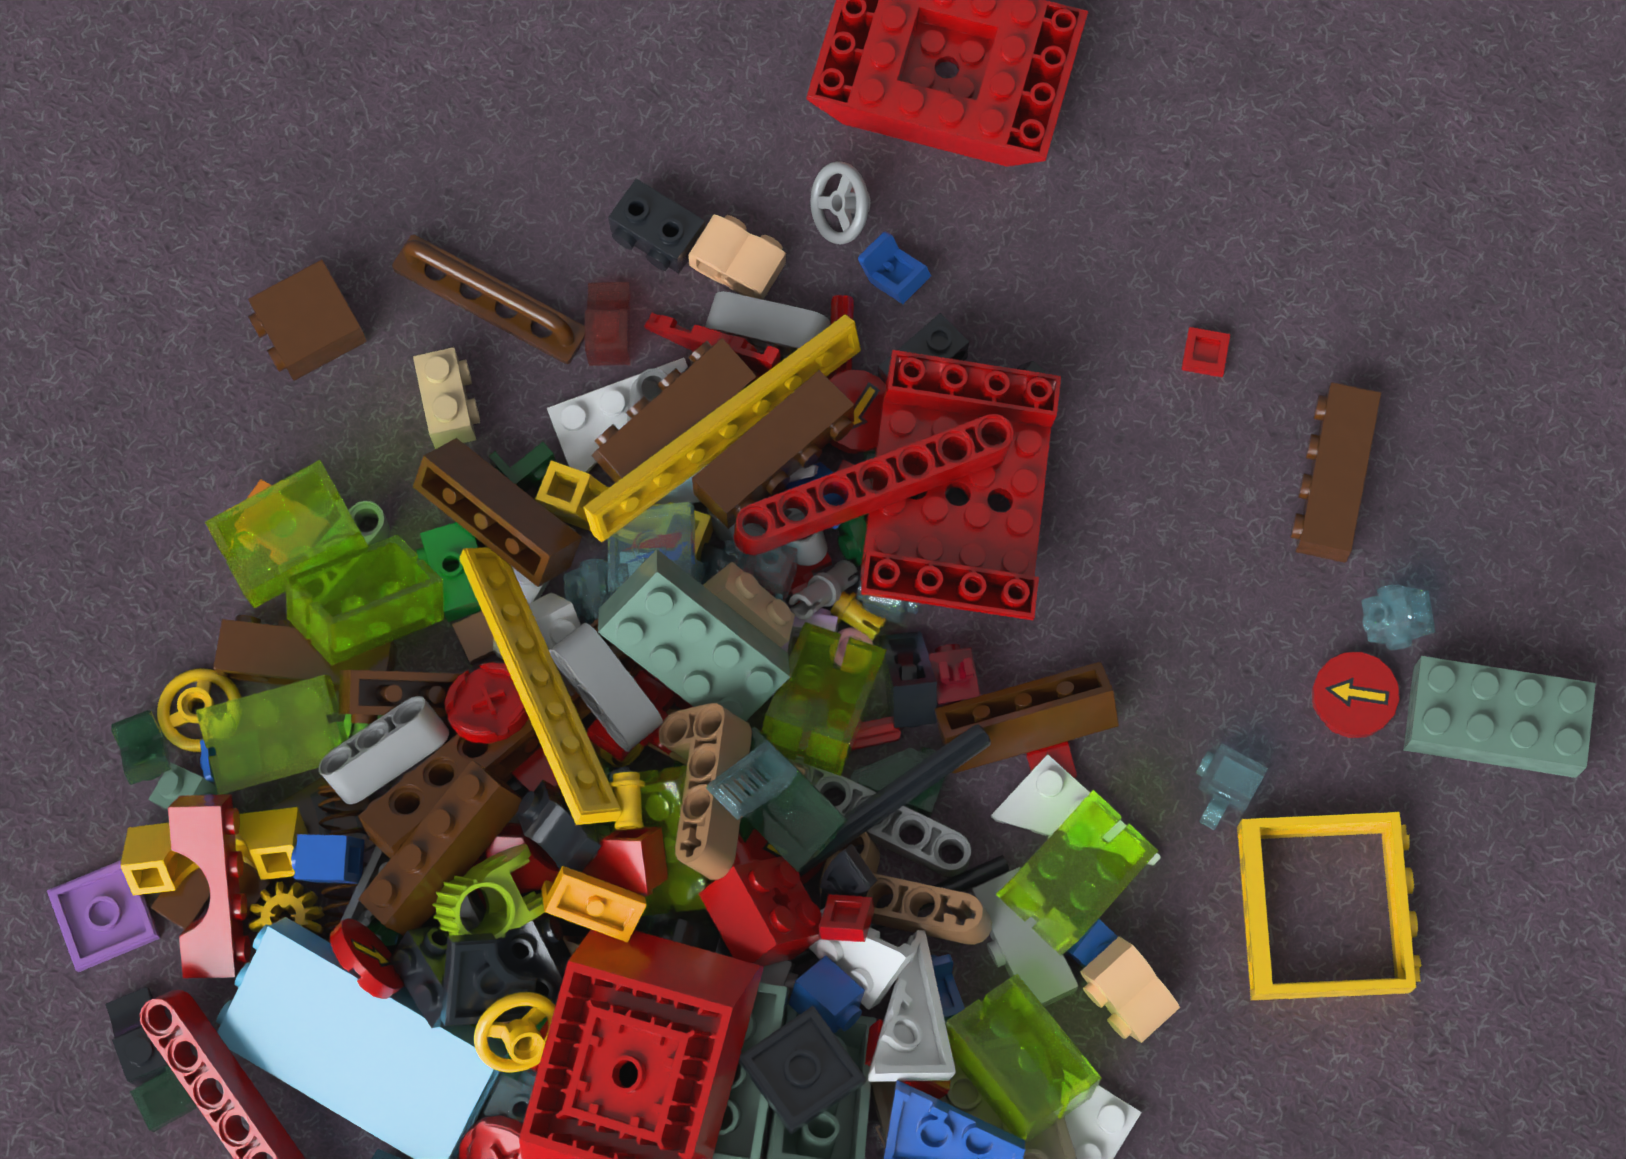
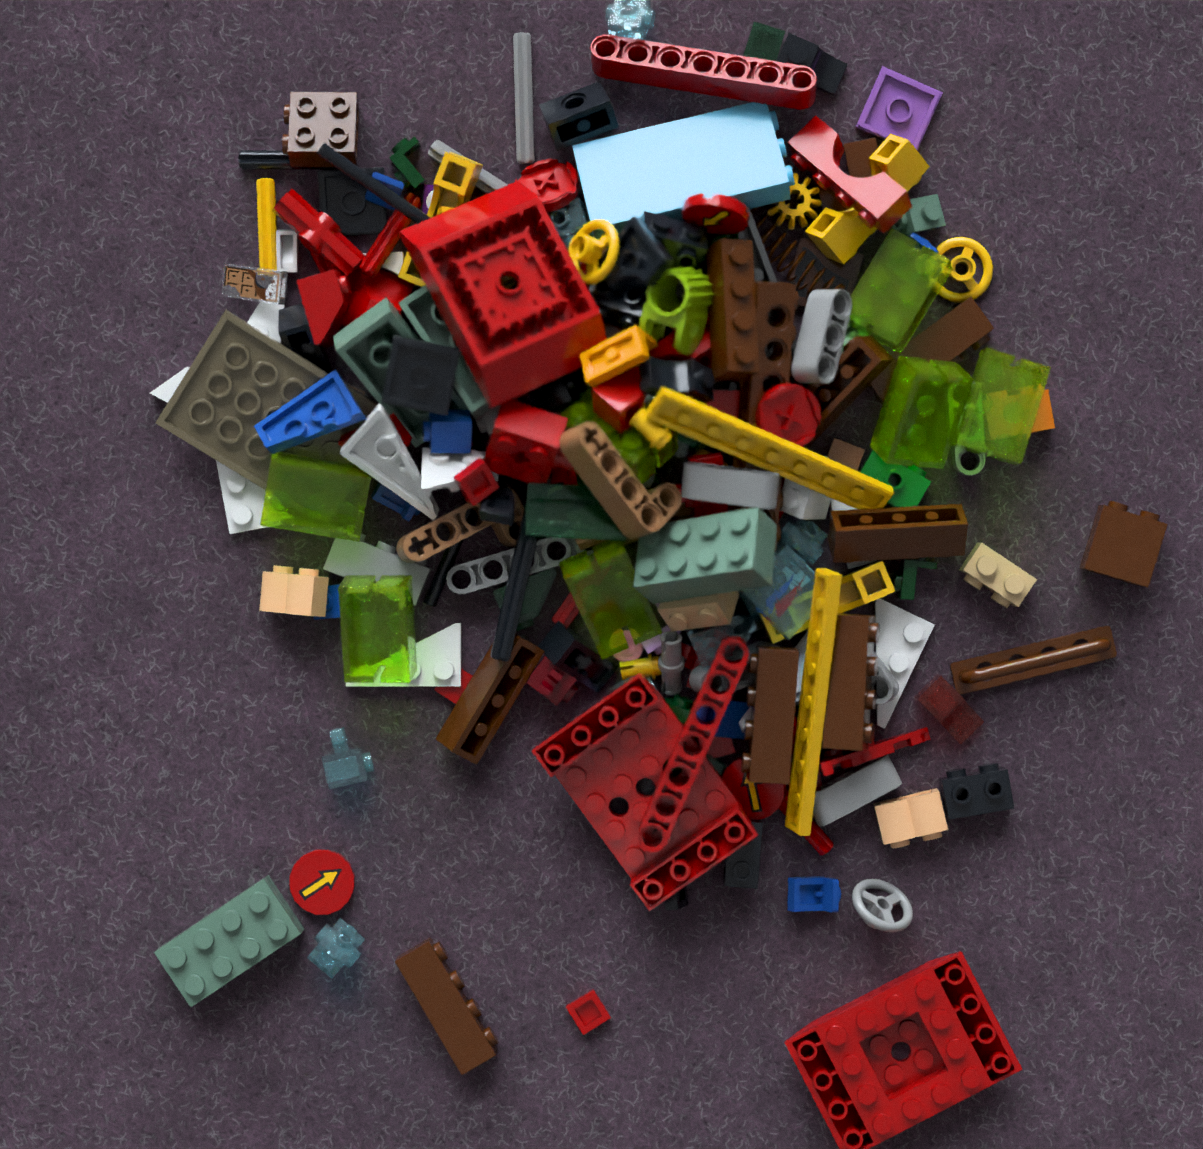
camera: 130 degrees right, 15 degrees up
(141, 747) = (968, 217): clear green bracket -> none
(328, 858) = (795, 249): blue brick -> none
(770, 764) = (591, 524): clear light blue slope -> none
(1398, 883) = (181, 772): yellow window -> none

